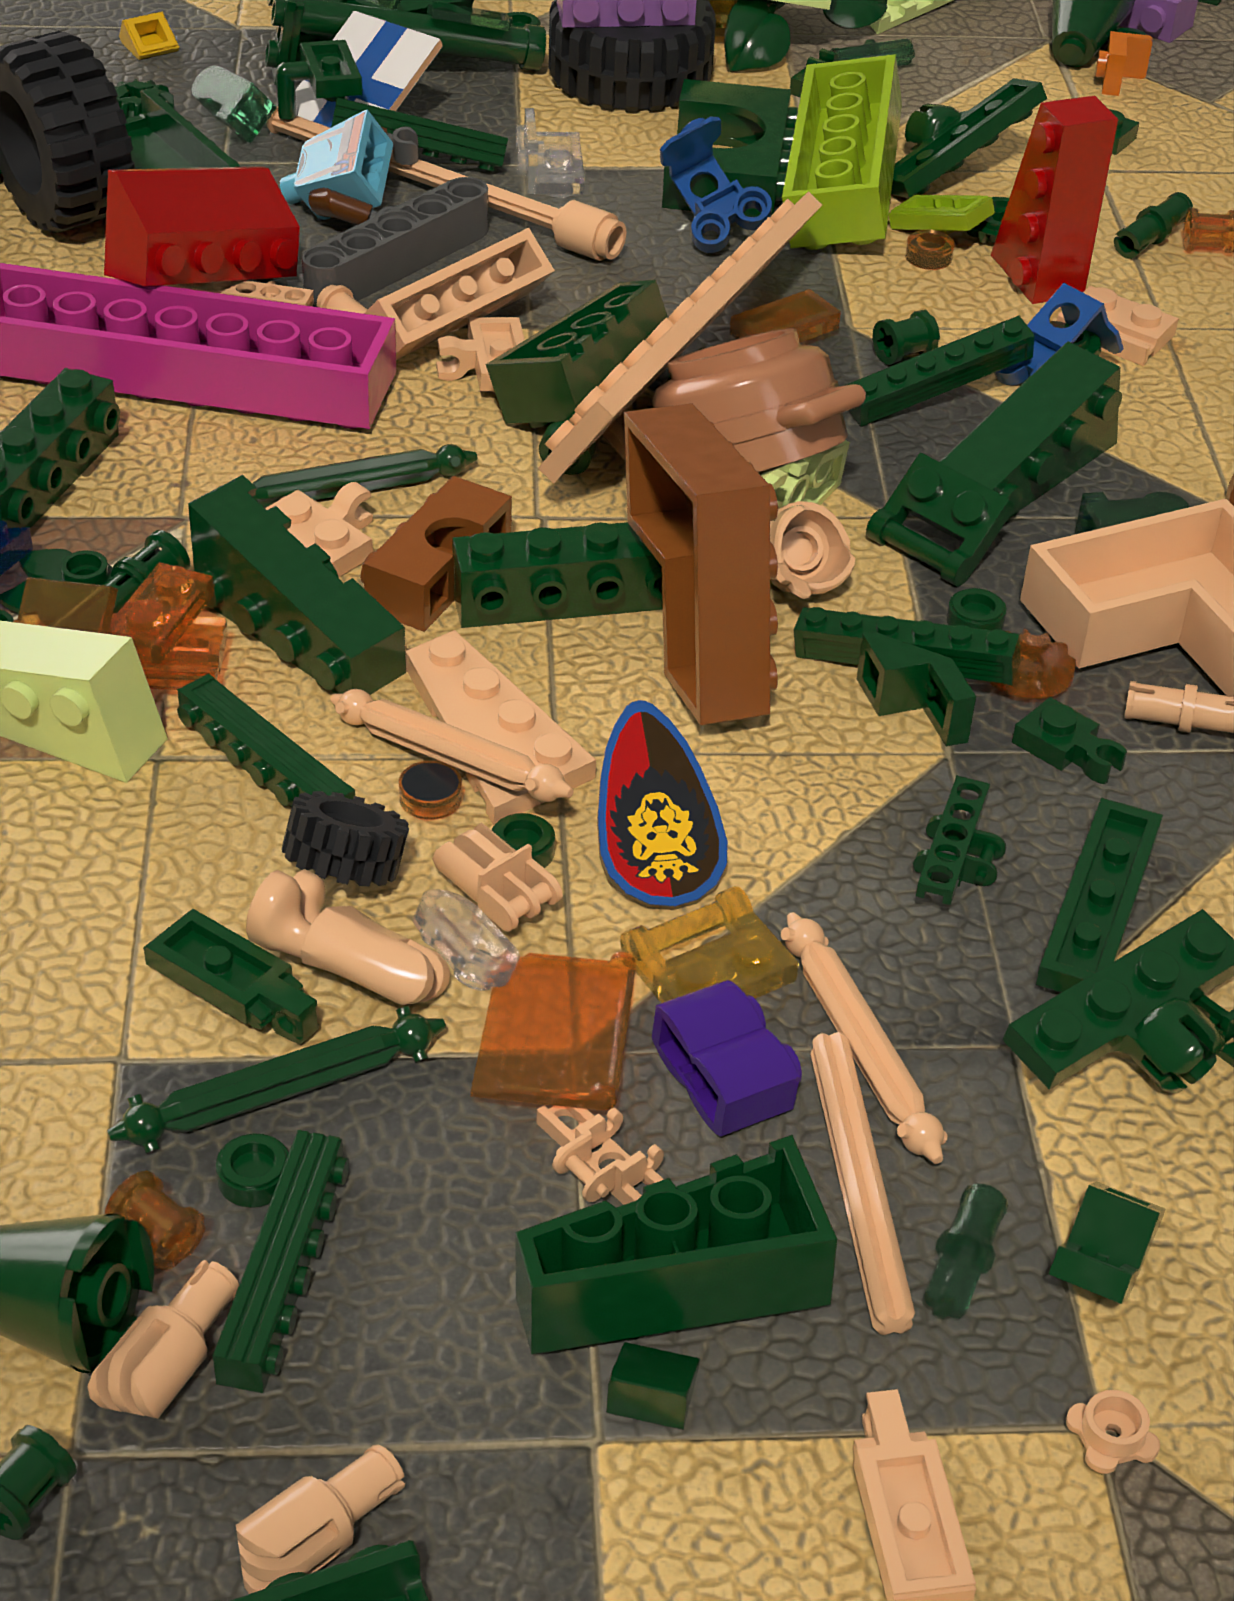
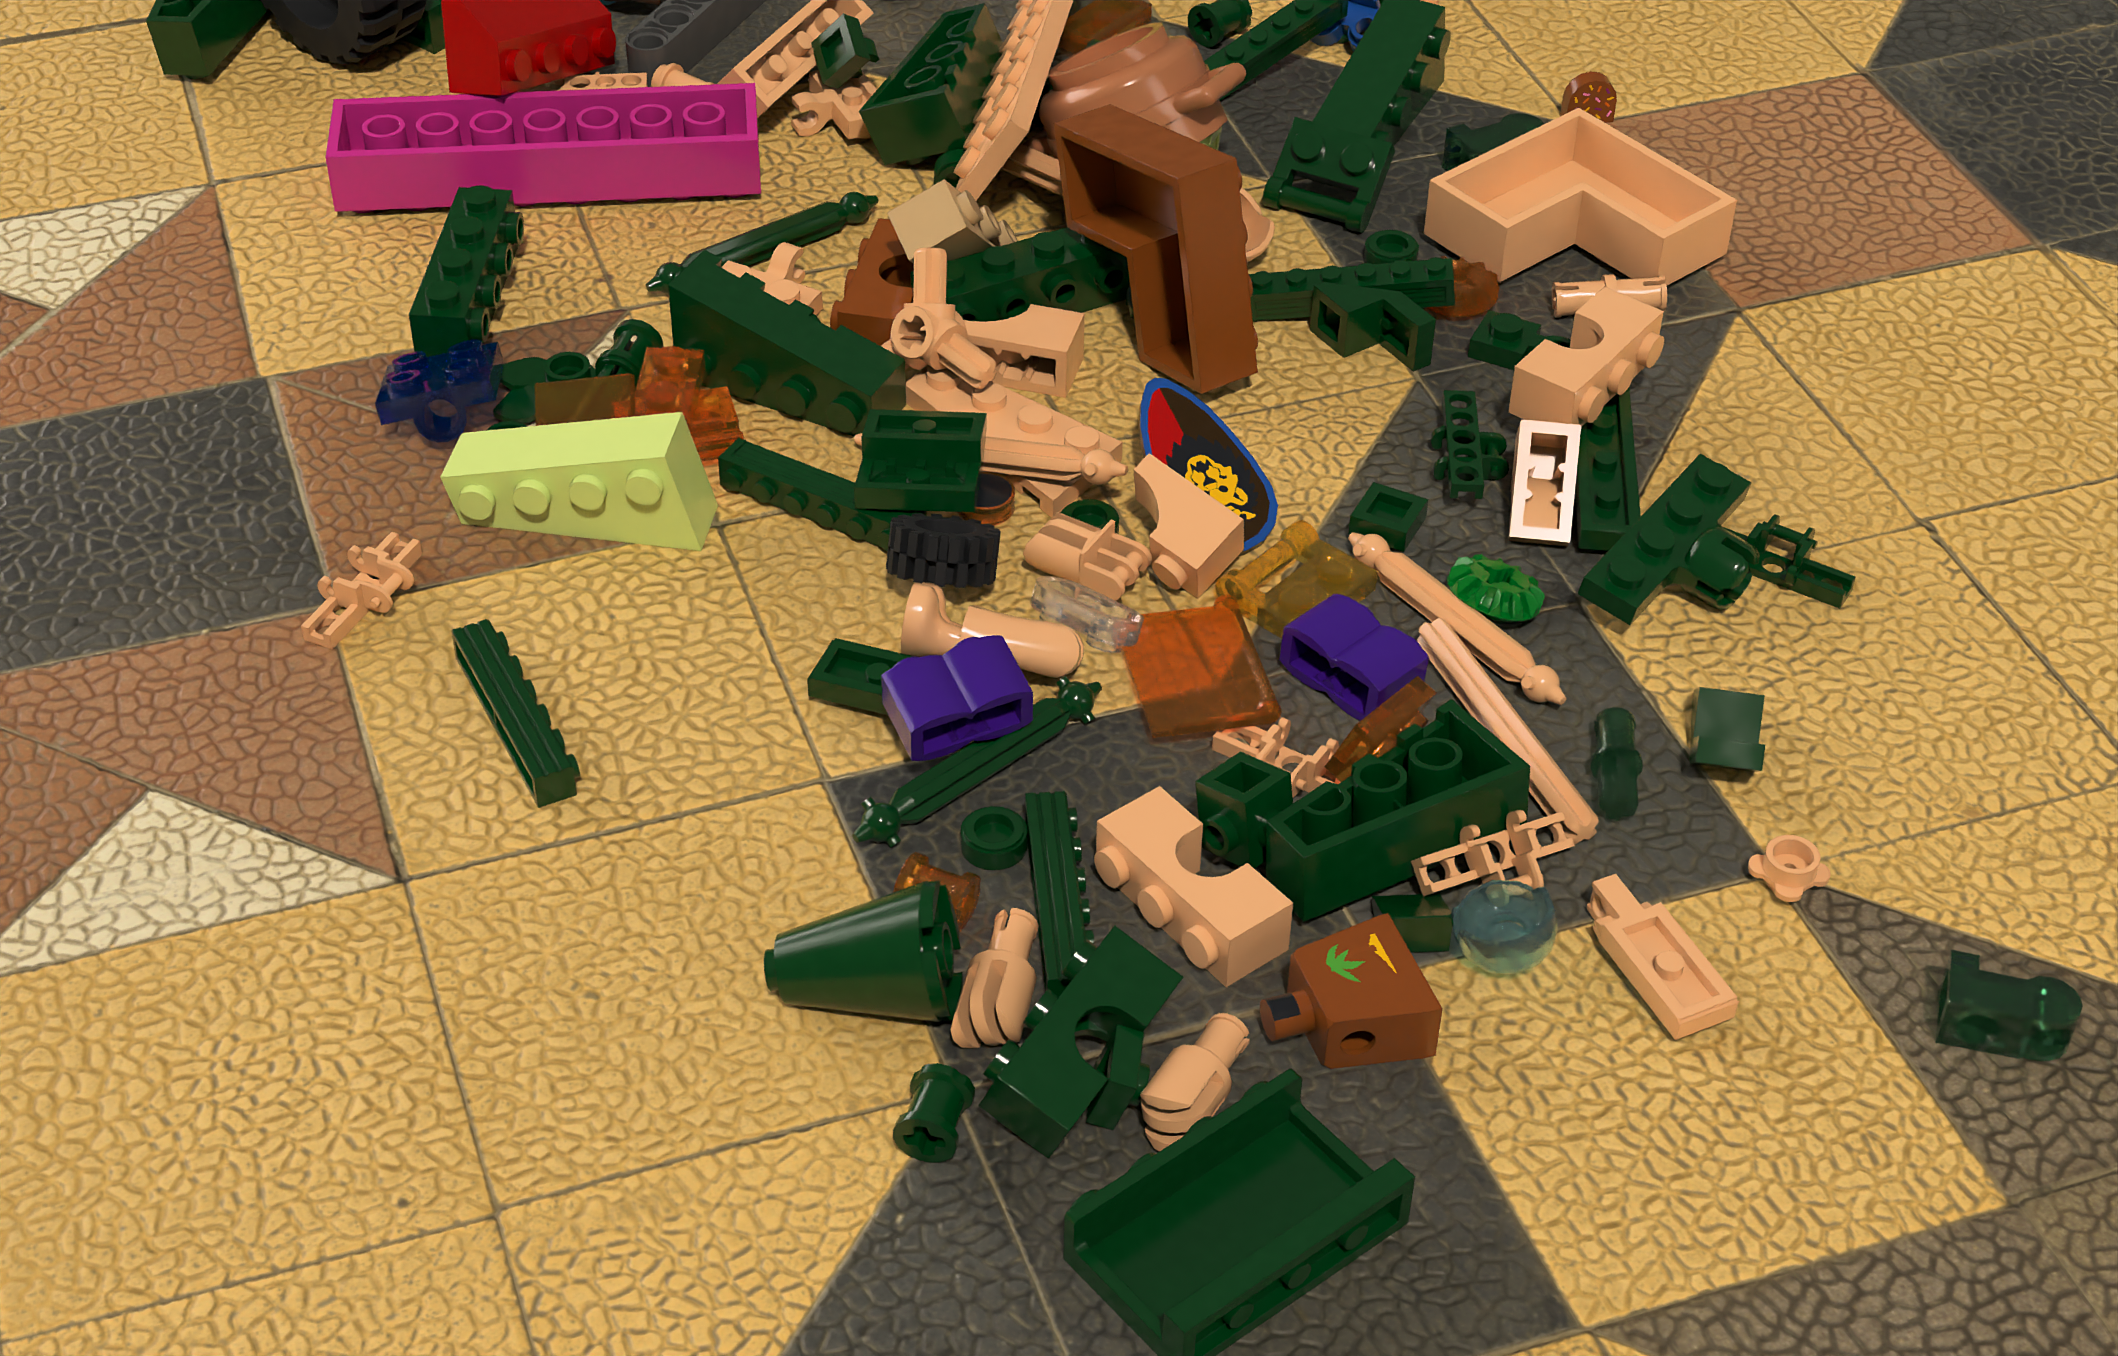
camera: 15 degrees left, 0 degrees up
(233, 1493) = (1126, 1077): none -> dark green plate
(259, 1390) = (1046, 1081): none -> dark green arch
(266, 1006) = (957, 697): none -> dark purple brick
(368, 737) = (921, 460): none -> dark green slope
(441, 1333) = (1221, 921): none -> light nougat arch
(442, 603) = (932, 330): none -> light nougat bush
(500, 303) = (843, 51): none -> dark green tile
(504, 497) = (948, 221): none -> tan slope
(506, 1196) = (1236, 804): none -> dark green brick
(538, 1466) = (1357, 999): none -> dark orange torso
(544, 643) = (1034, 349): none -> light nougat arch
(608, 878) = (1193, 532): none -> light nougat arch
(691, 1153) = (1379, 729): none -> clear orange plate
(746, 1421) = (1505, 926): none -> clear light blue hair
(818, 1328) = (1480, 859): none -> light nougat piece
(839, 902) = (1389, 514): none -> dark green plate
(933, 1021) = (1495, 588): none -> green gear
(1019, 903) = (1543, 482): none -> light nougat arch
(1153, 765) = (1607, 349): none -> light nougat arch

